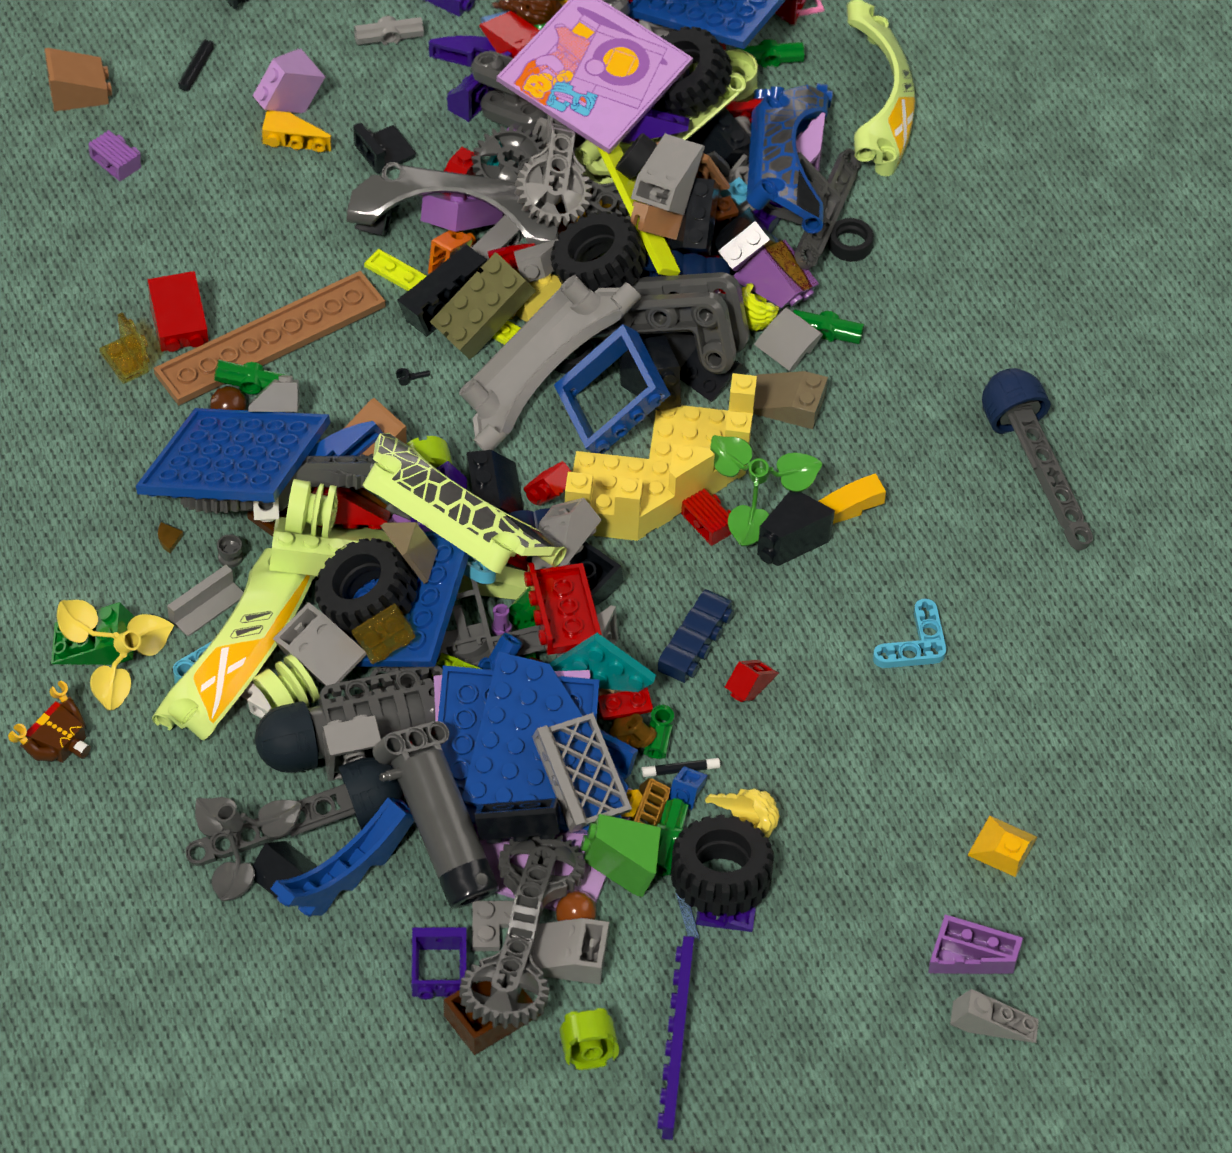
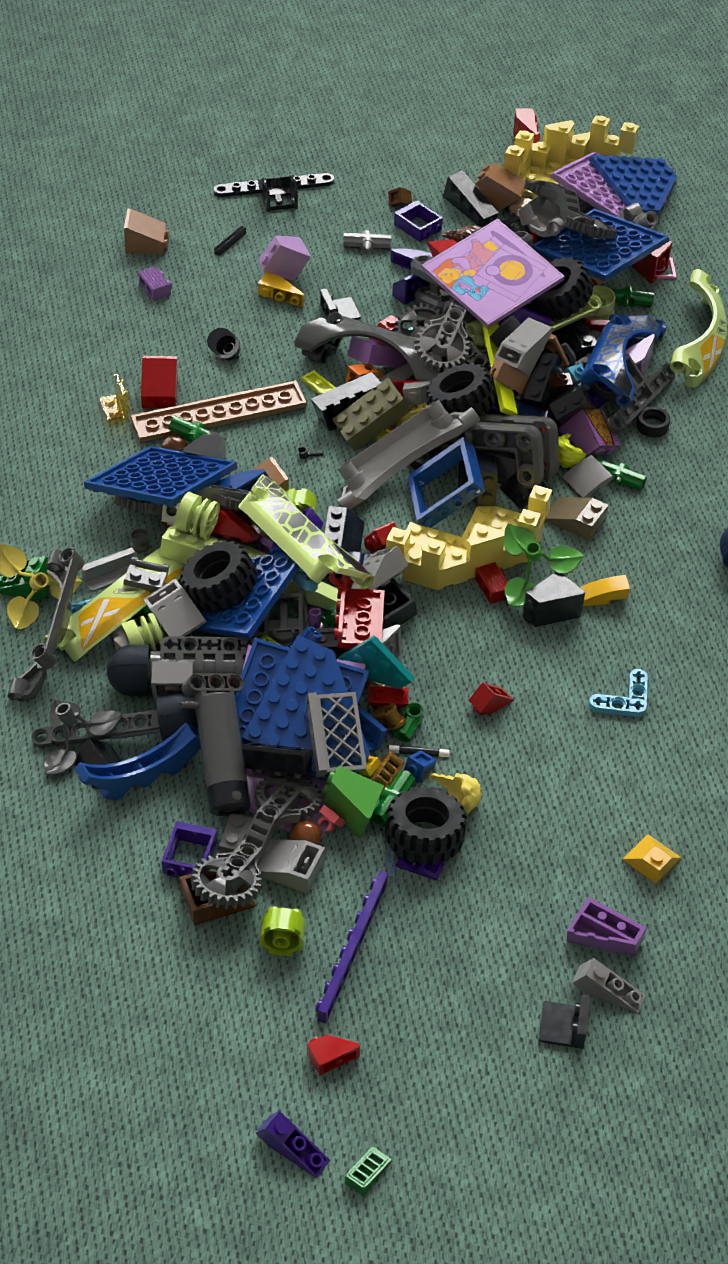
camera: 15 degrees right, 5 degrees down
(161, 619) = (64, 568): none -> dark grey panel
(169, 536) = (101, 524): pearl gold tile -> none
(245, 233) = (224, 344): none -> black piece
(265, 610) = (146, 579): none -> dark grey plate
(384, 633) = (220, 608): clear yellow bracket -> none
(413, 546) = (258, 552): dark tan slope -> none
(603, 880) = (331, 817): none -> coral tile
(695, 635) = (457, 661): dark blue brick -> none
(956, 1075) = (565, 1023): none -> black bracket

